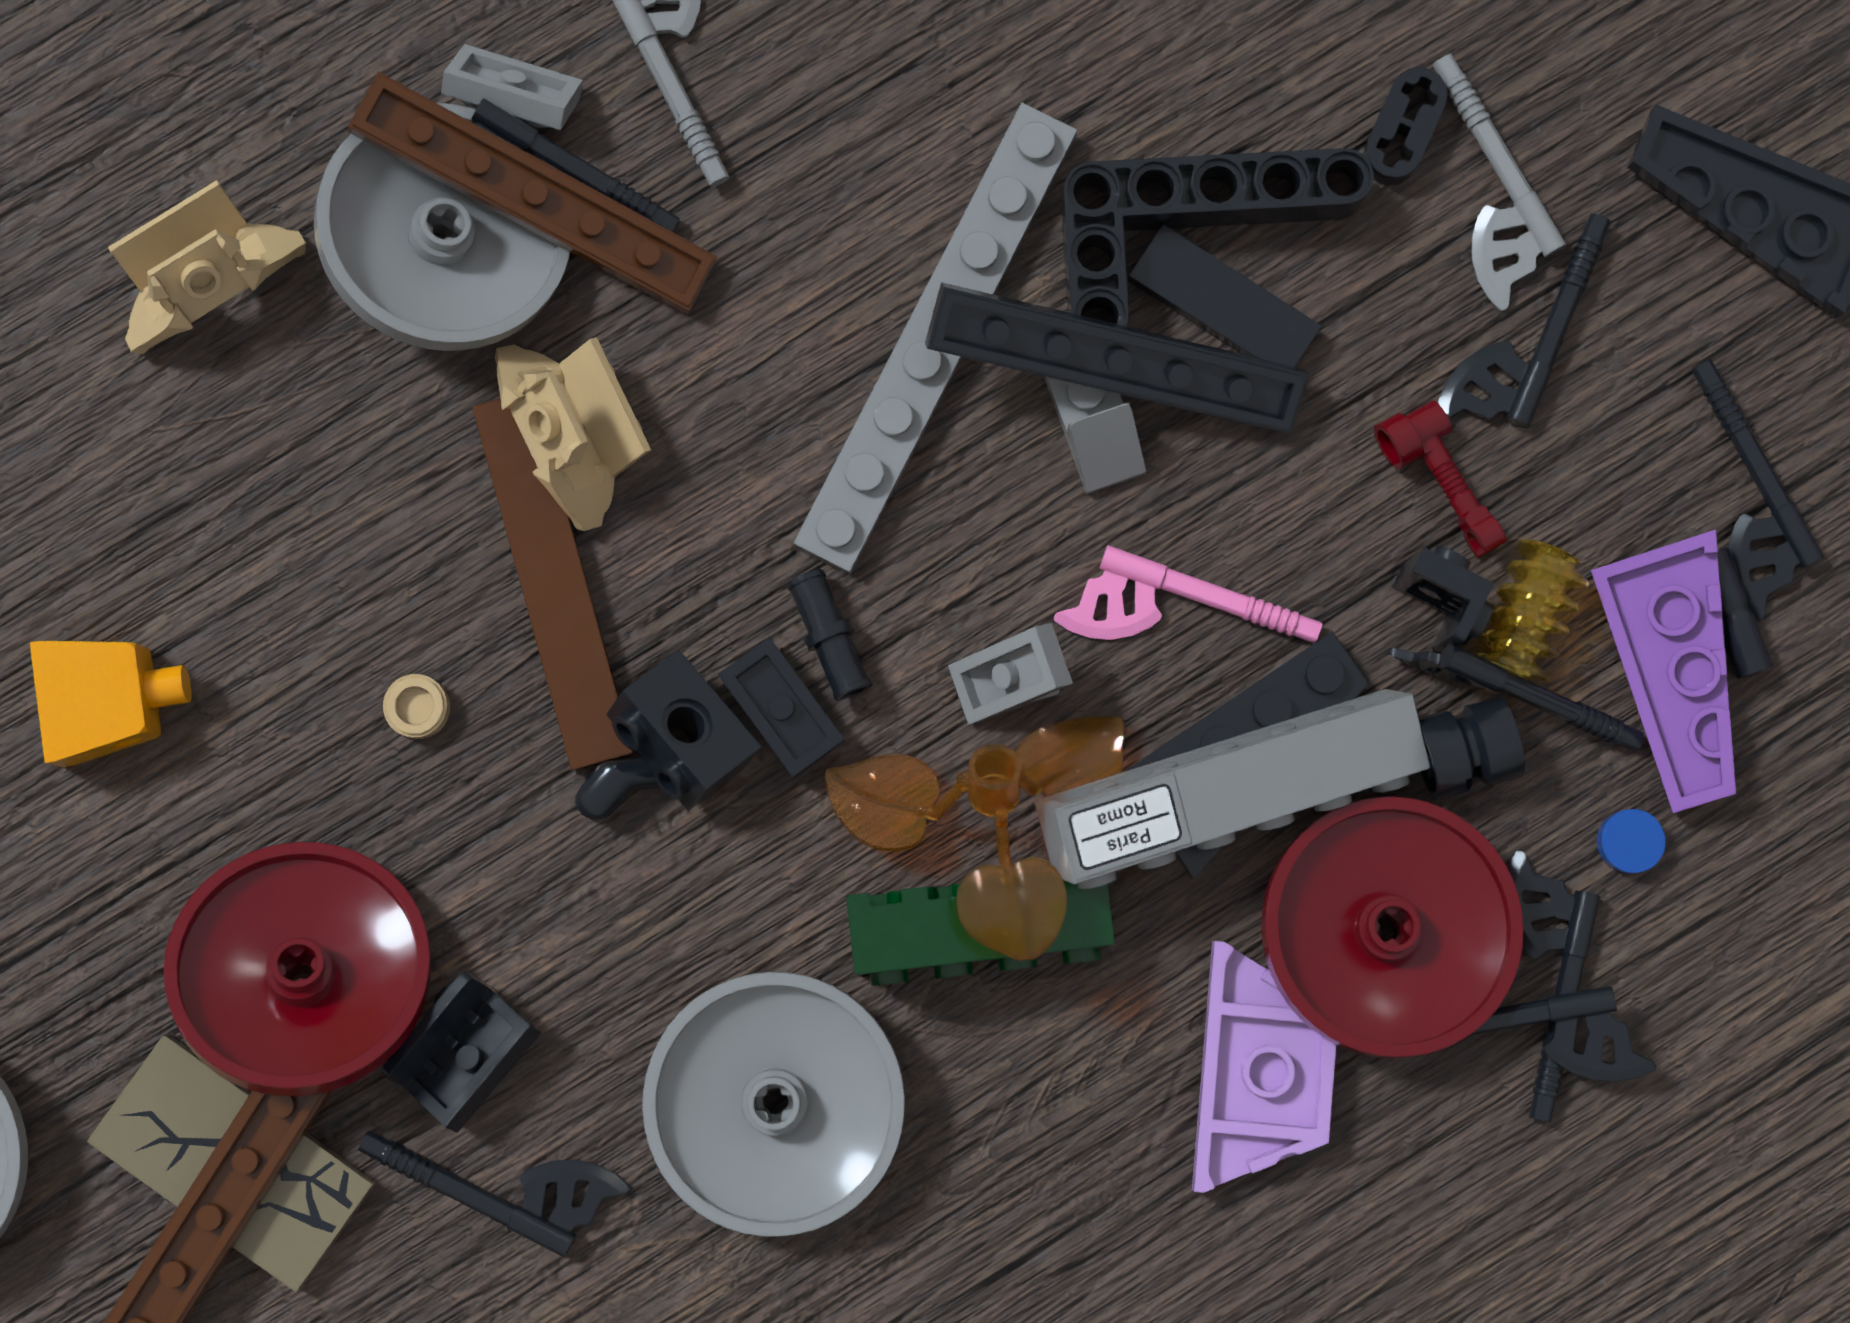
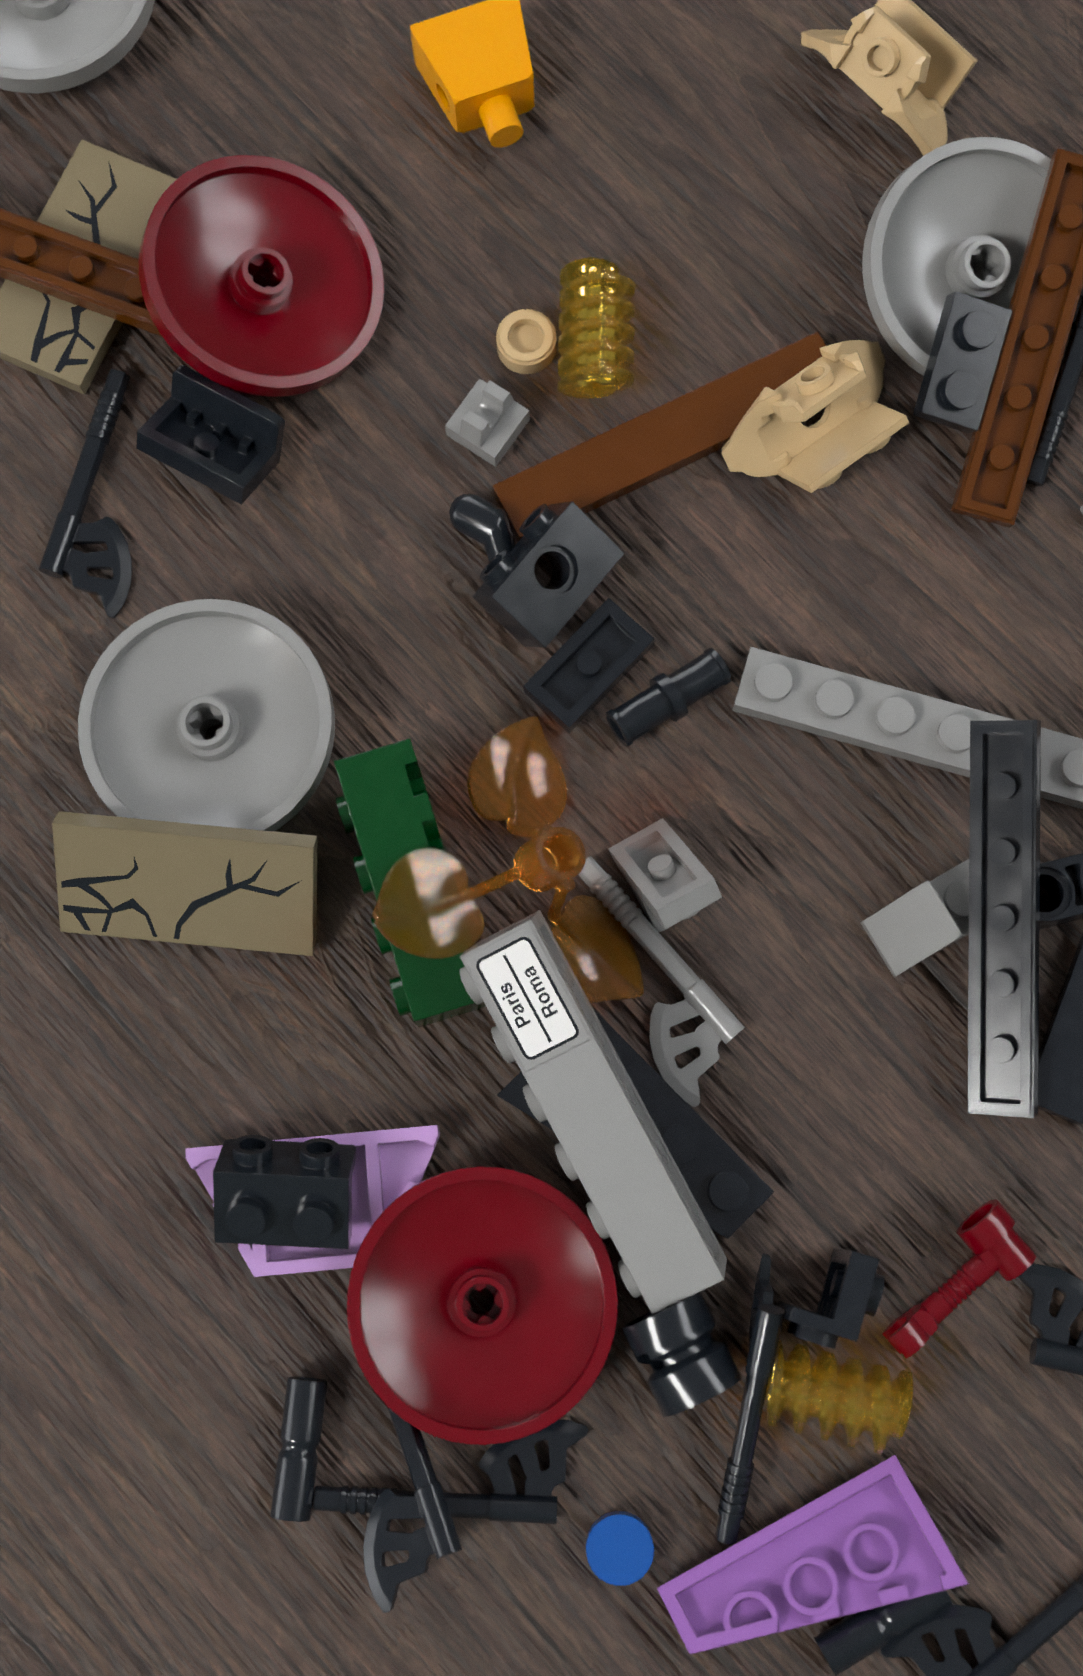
camera: 85 degrees right, 5 degrees down
(427, 633) = (595, 329): none -> clear yellow piece
(498, 763) = (487, 421): none -> light grey tile
(544, 270) = (962, 362): none -> black plate
(933, 1149) = (186, 883): none -> dark tan tile
(1134, 665) = (699, 999): none -> light grey piece
(1150, 575) = (792, 998): bright pink piece -> none
(1256, 1098) = (284, 1192): none -> black bracket
(1500, 1129) = (298, 1457): none -> black piece

